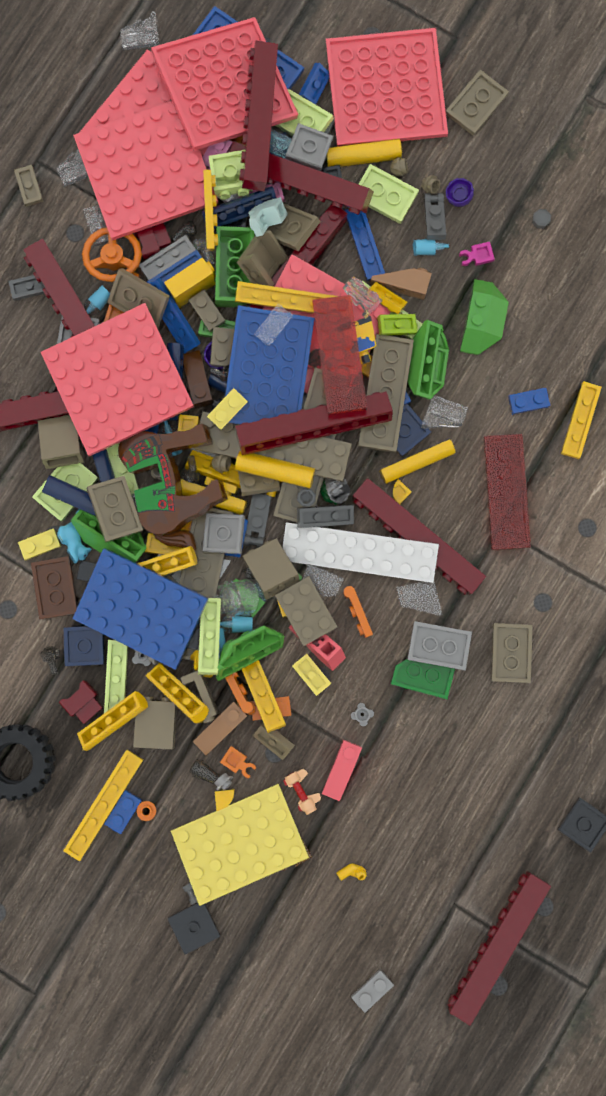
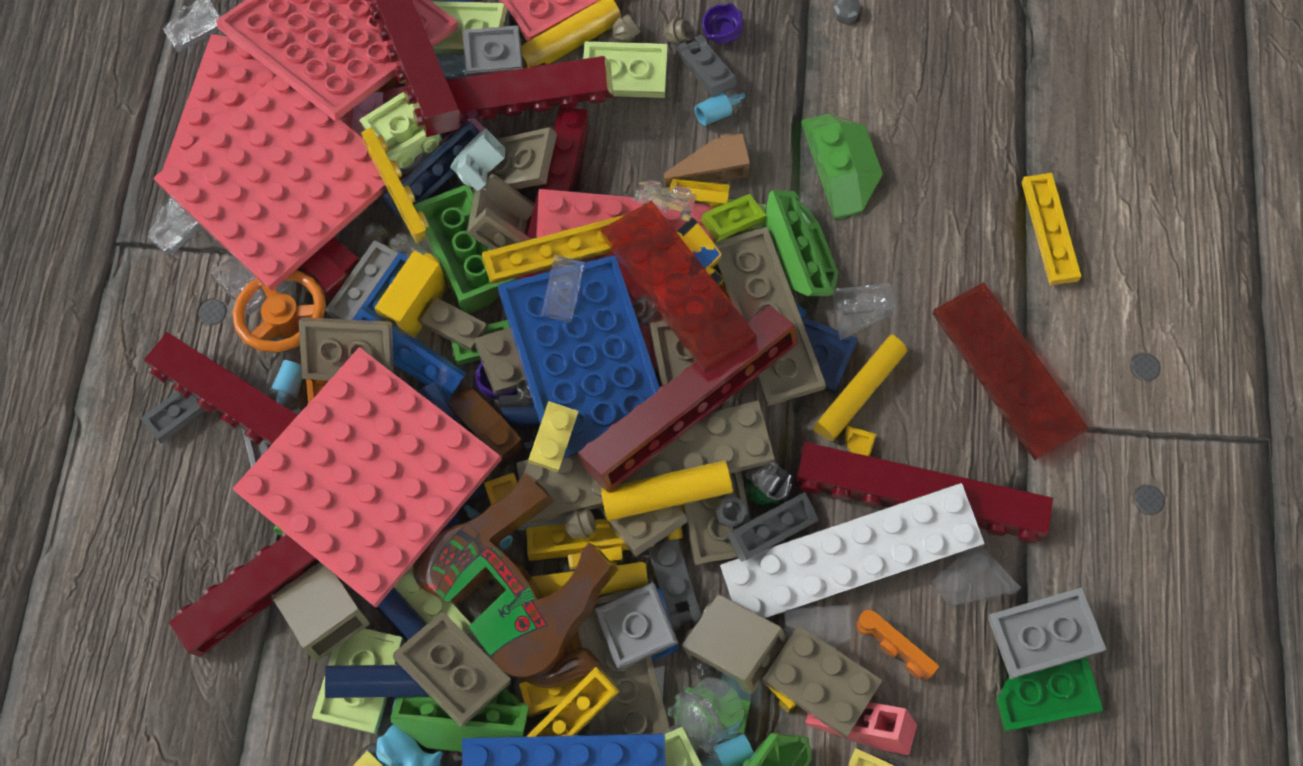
camera: 25 degrees left, 15 degrees down
(28, 185) = (116, 278): dark tan plate -> none
(191, 475) = (542, 562): clear smoke plate -> none
(365, 244) = (629, 140): blue plate -> none
(479, 253) = (791, 86): dark pink plate -> none
(511, 653) = (1153, 593): dark tan plate -> none
(529, 401) = (965, 237): blue plate -> none

